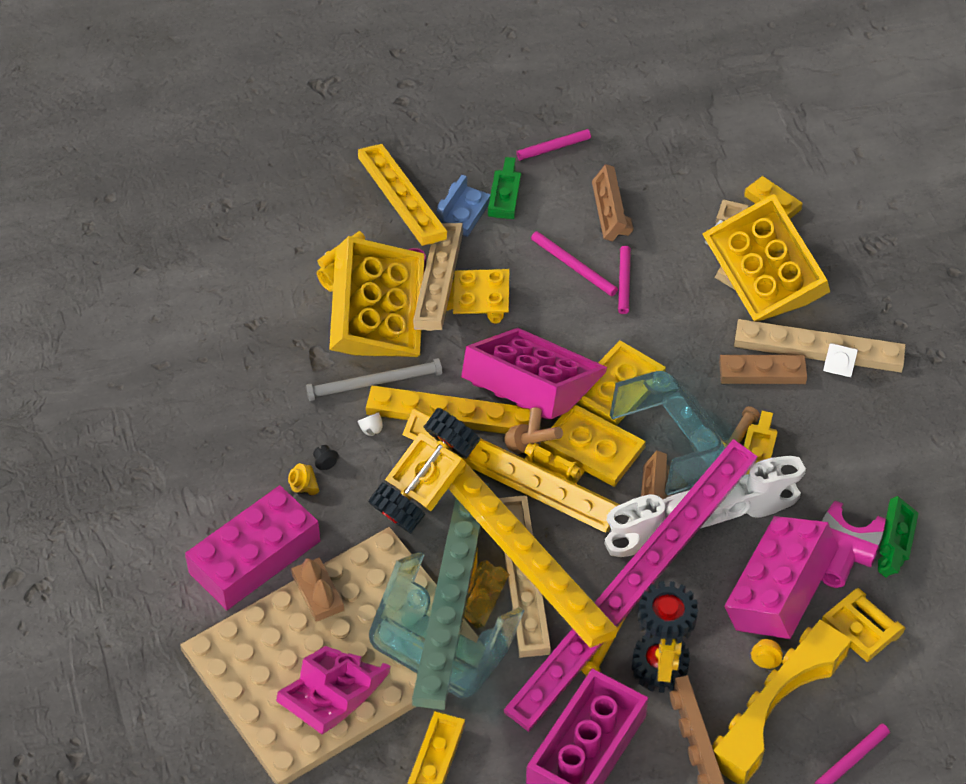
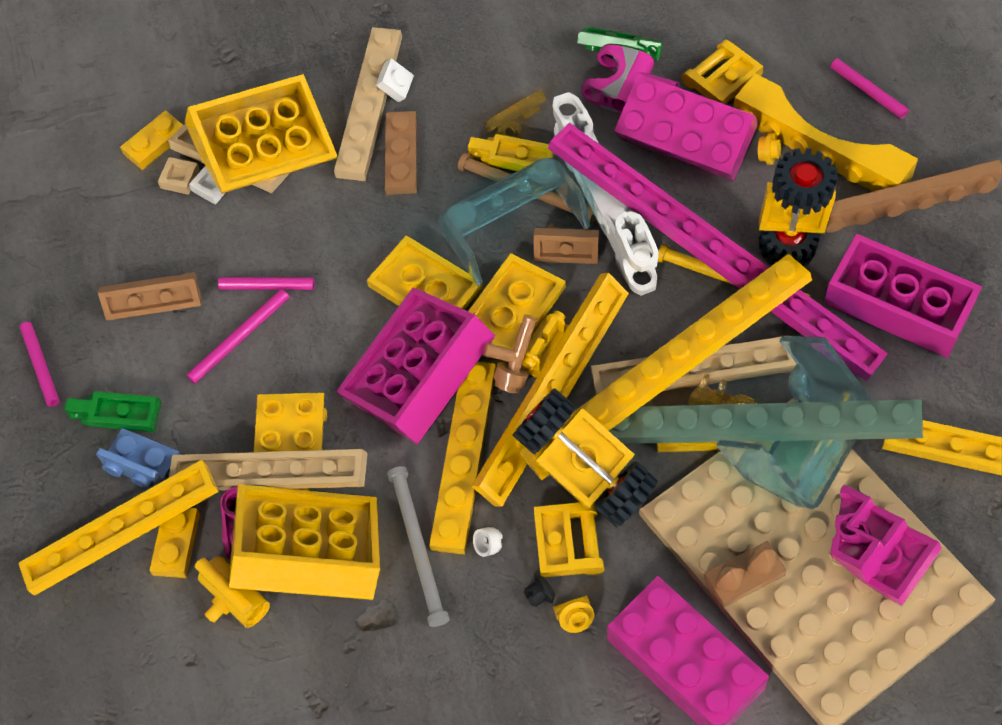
camera: 85 degrees left, 10 degrees up
(363, 468) = (556, 540): none -> yellow plate
(390, 233) = (175, 545): none -> yellow plate
(811, 458) = (527, 107): none -> clear yellow plate

